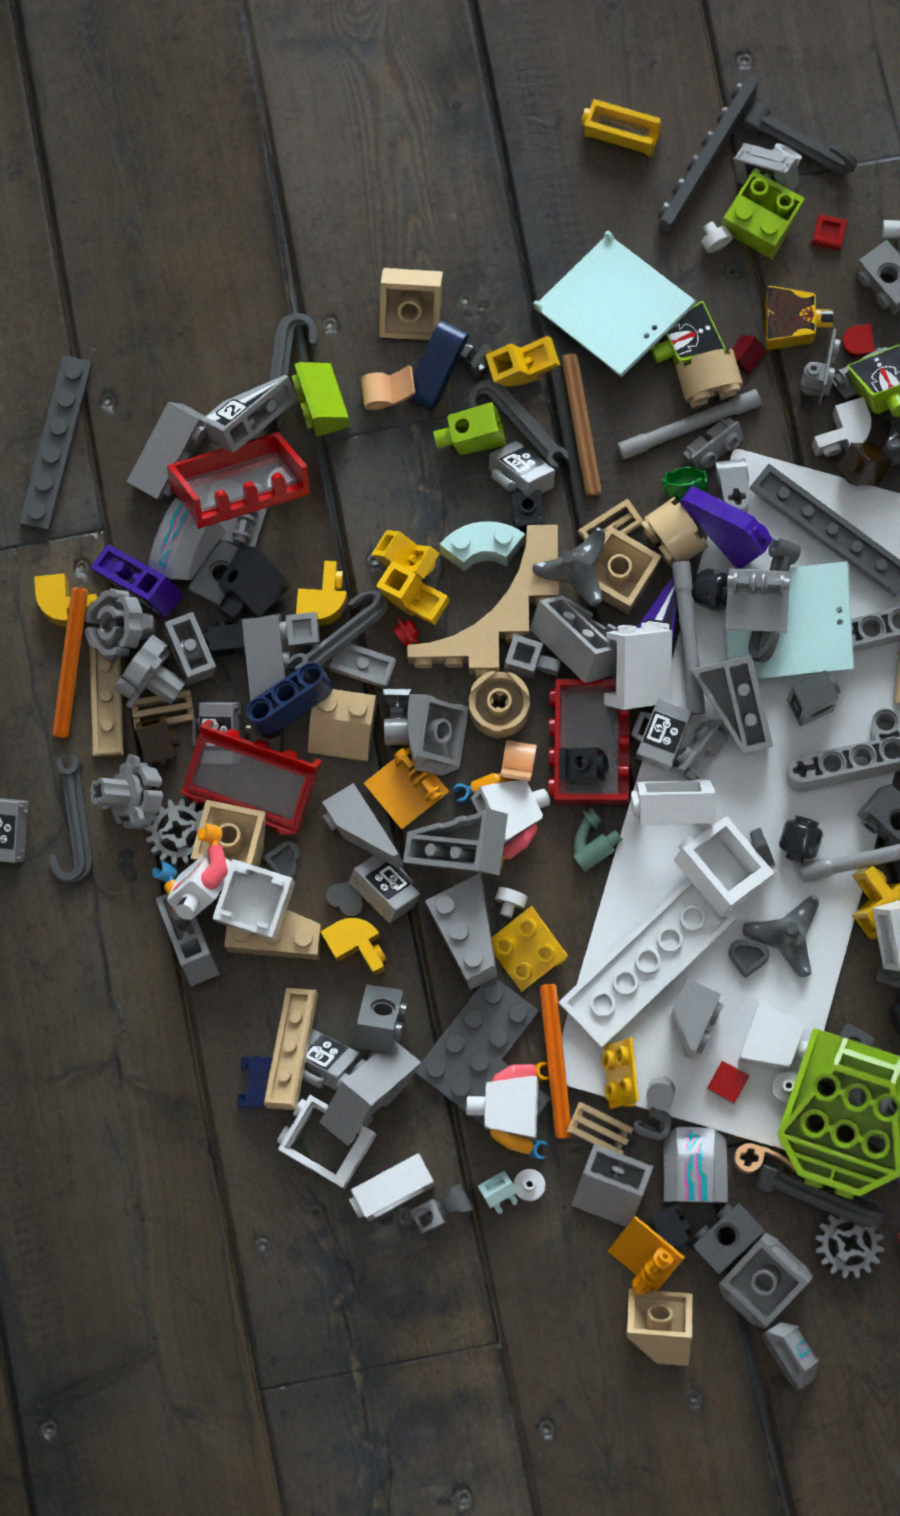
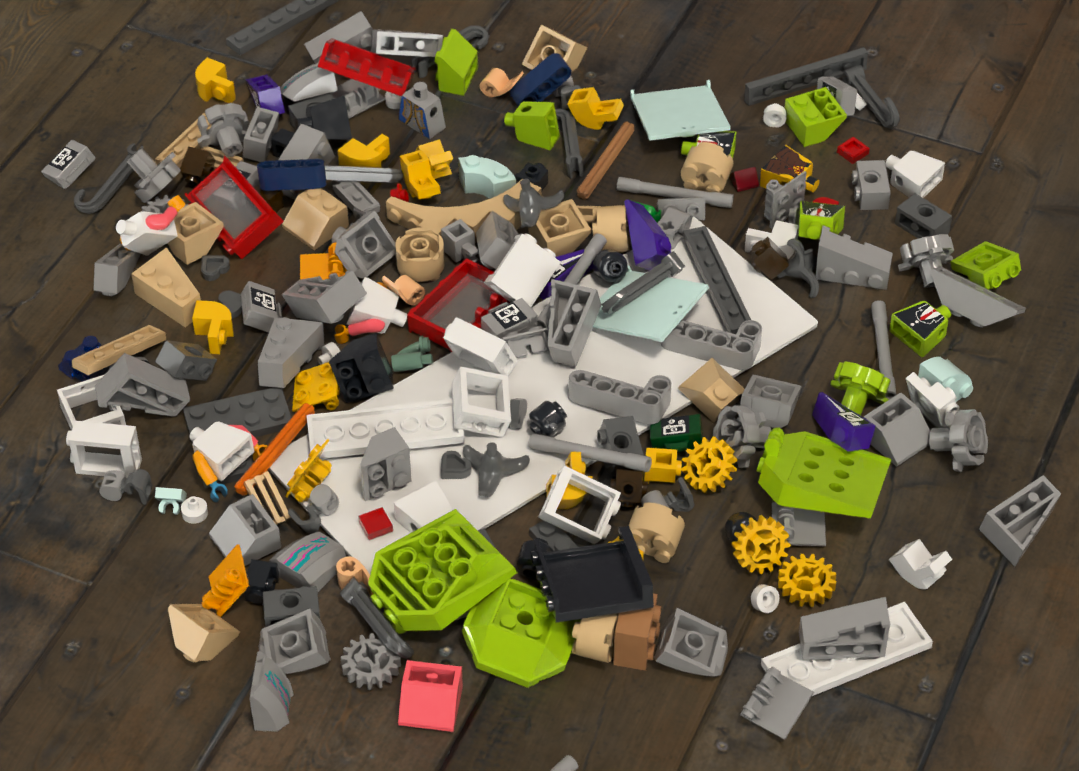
camera: 30 degrees right, 30 degrees down
(70, 662) = (185, 105): orange axle -> none
(120, 624) = (233, 91): light grey piece -> none
(254, 900) = (169, 249): white container -> none
(302, 629) = (335, 154): light grey tile -> none
(337, 493) = (422, 110): none -> light grey torso
(358, 824) = (275, 265): light grey slope -> none
(521, 469) = (546, 158): light grey piece -> none
(570, 904) = (362, 369): none -> black slope
(571, 765) = (441, 307): black brick -> none
(622, 126) = (763, 39): yellow window -> none
(757, 600) = (630, 272): light grey hinge -> none
(813, 697) = (622, 346): dark grey brick -> none

